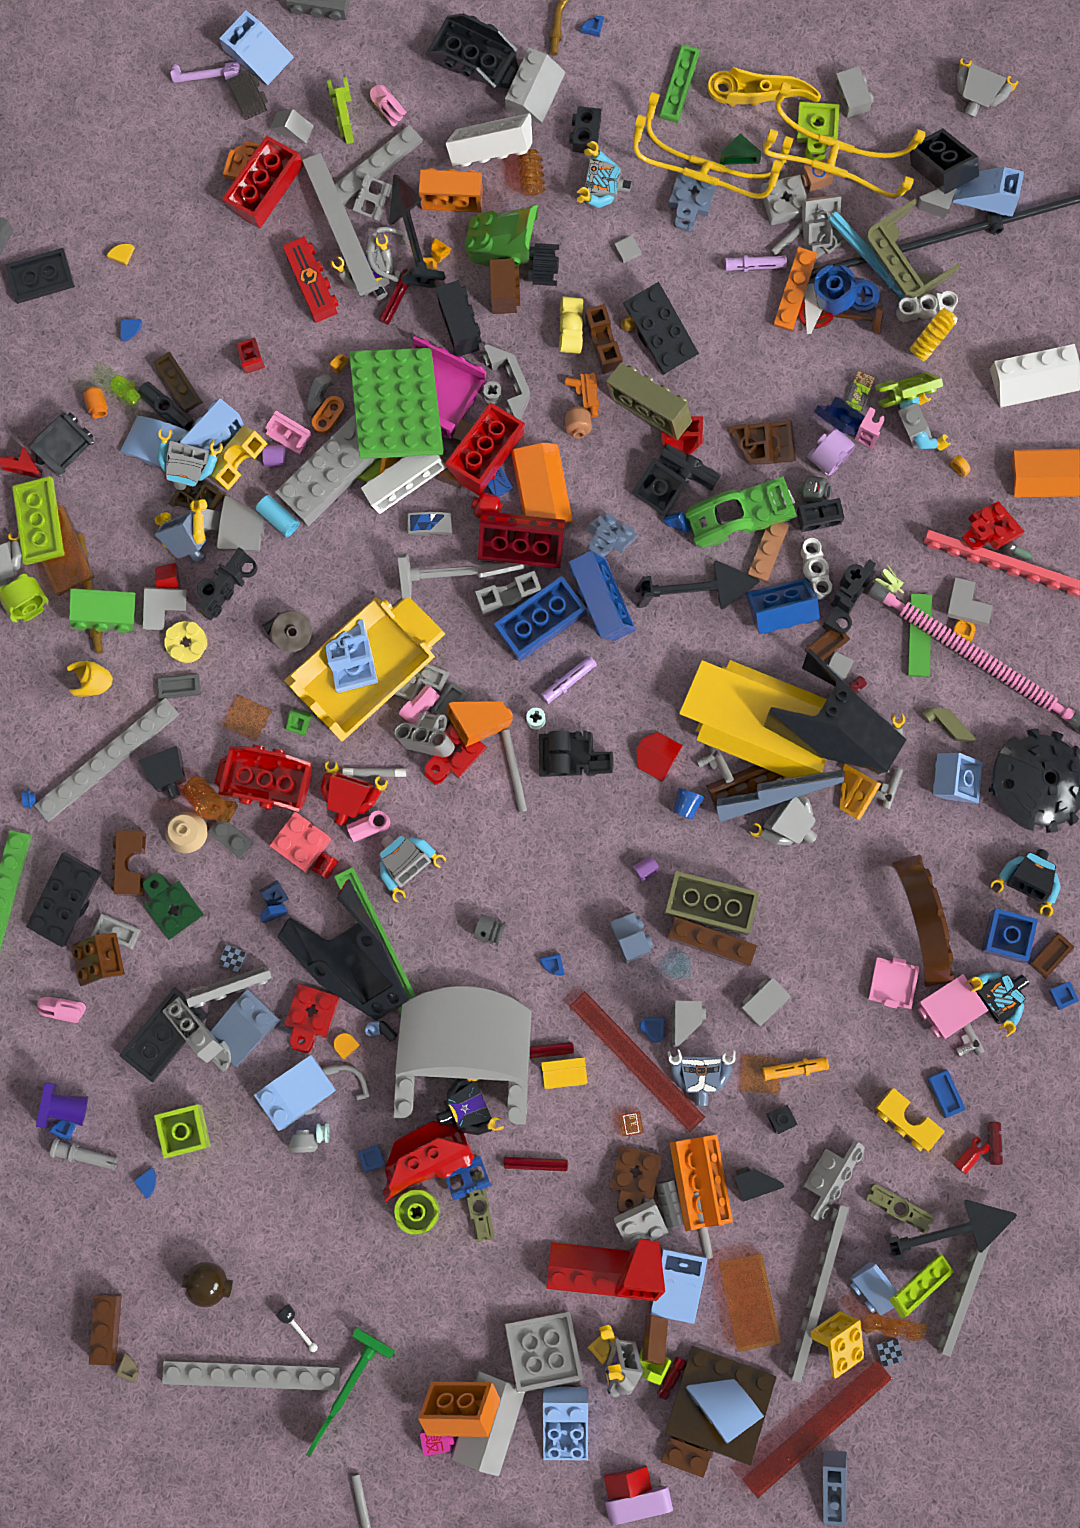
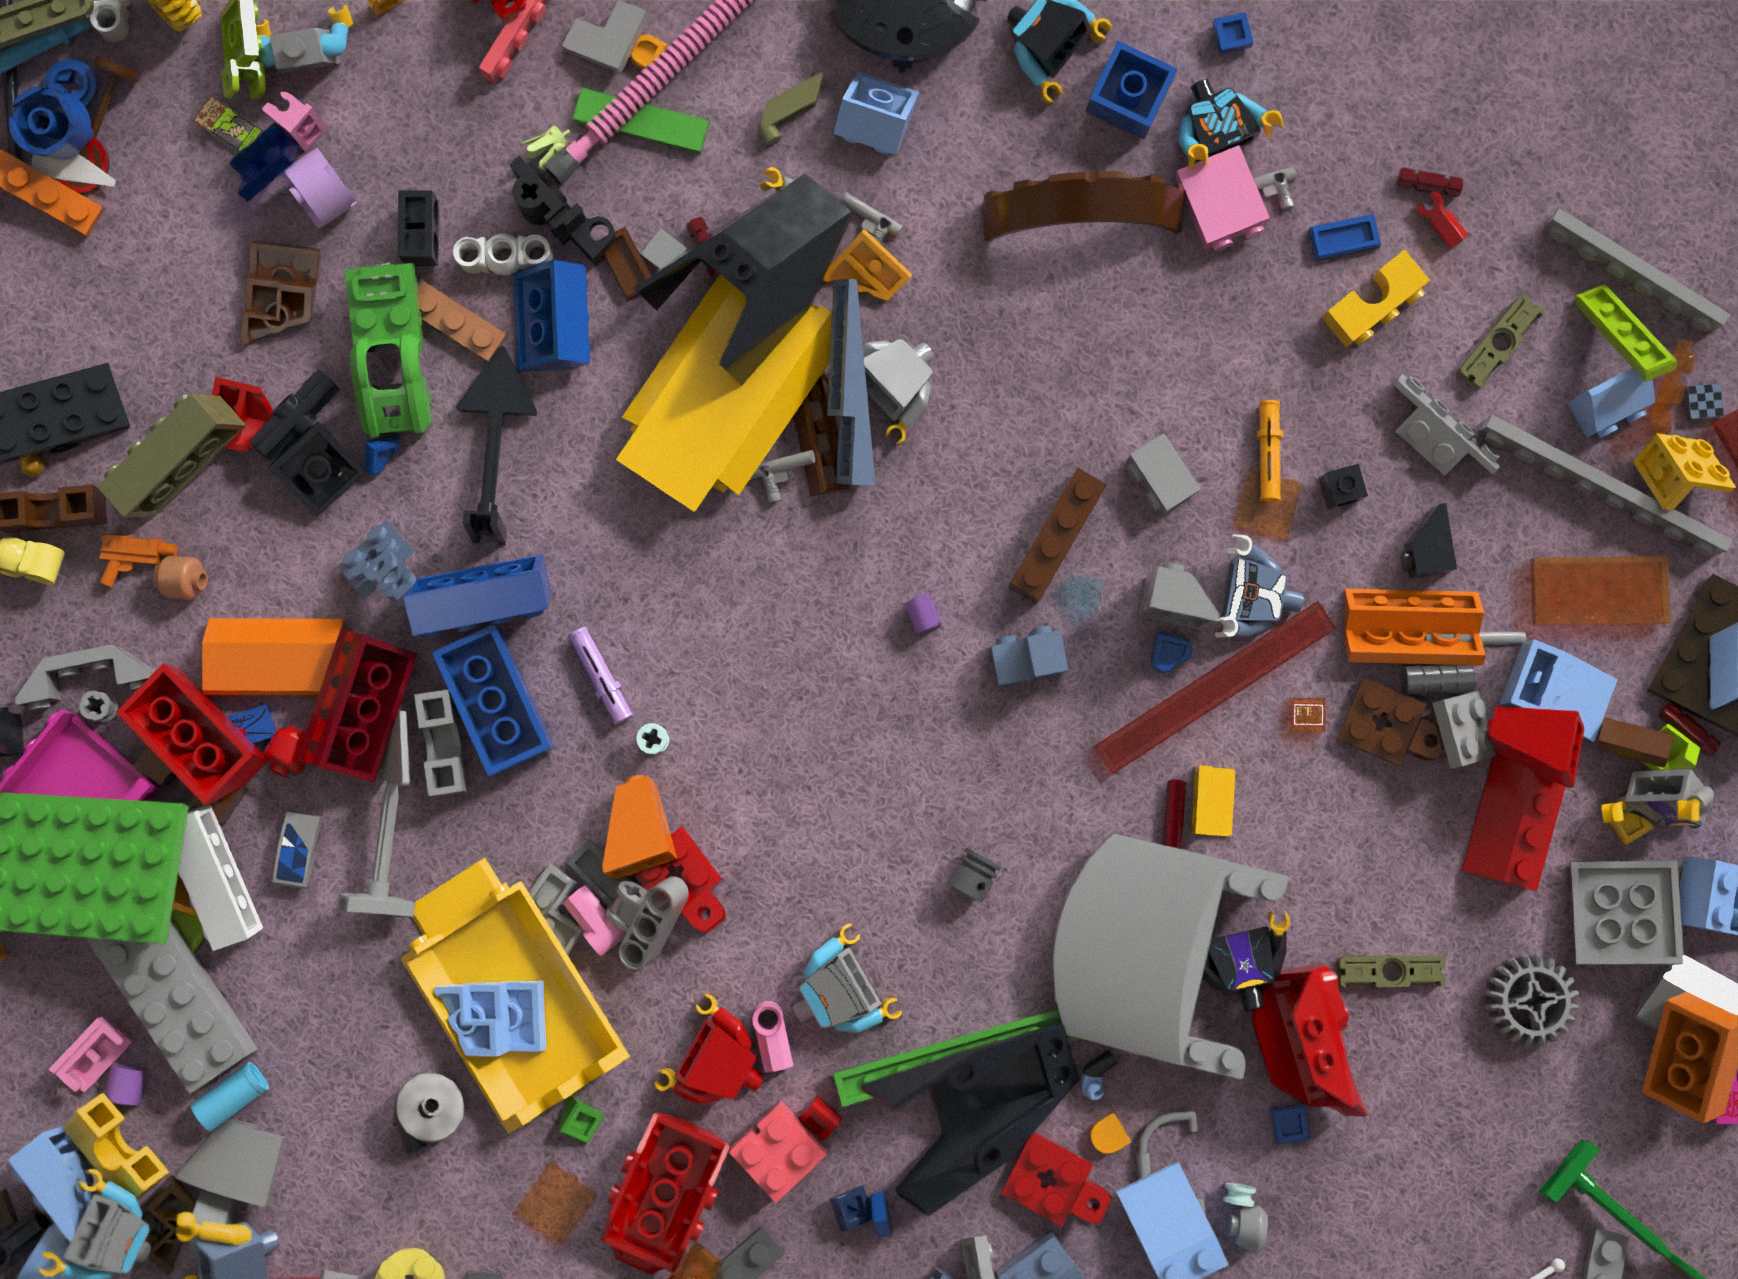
camera: 90 degrees left, 5 degrees up
(216, 592) = (330, 1206): black plate -> none
(316, 393) = (41, 998): dark grey slope -> none
(327, 415) = (74, 986): orange plate -> none
(375, 772) = (686, 1012): light grey bar -> none
(404, 1212) = (1404, 1062): lime brick -> none
(469, 1184) = (1358, 980): blue piece -> none
(490, 1295) = (1529, 987): none -> light grey gear
(514, 771) = (728, 789): light grey bar -> none
(535, 1164) = (1342, 871): dark red axle -> none
(553, 964) = (1043, 786): blue tile -> none
(569, 753) = (720, 696): black plate -> none
(657, 754) = (748, 560): red slope -> none
(687, 803) = (835, 530): blue piece -> none
(712, 903) = (998, 523): olive brick -> none
(815, 489) = (374, 228): dark grey head -> none
(893, 983) = (1168, 277): bright pink piece -> none
(984, 1222) = (1548, 221): black piece -> none
(1051, 955) = (1168, 36): reddish brown tile -> none

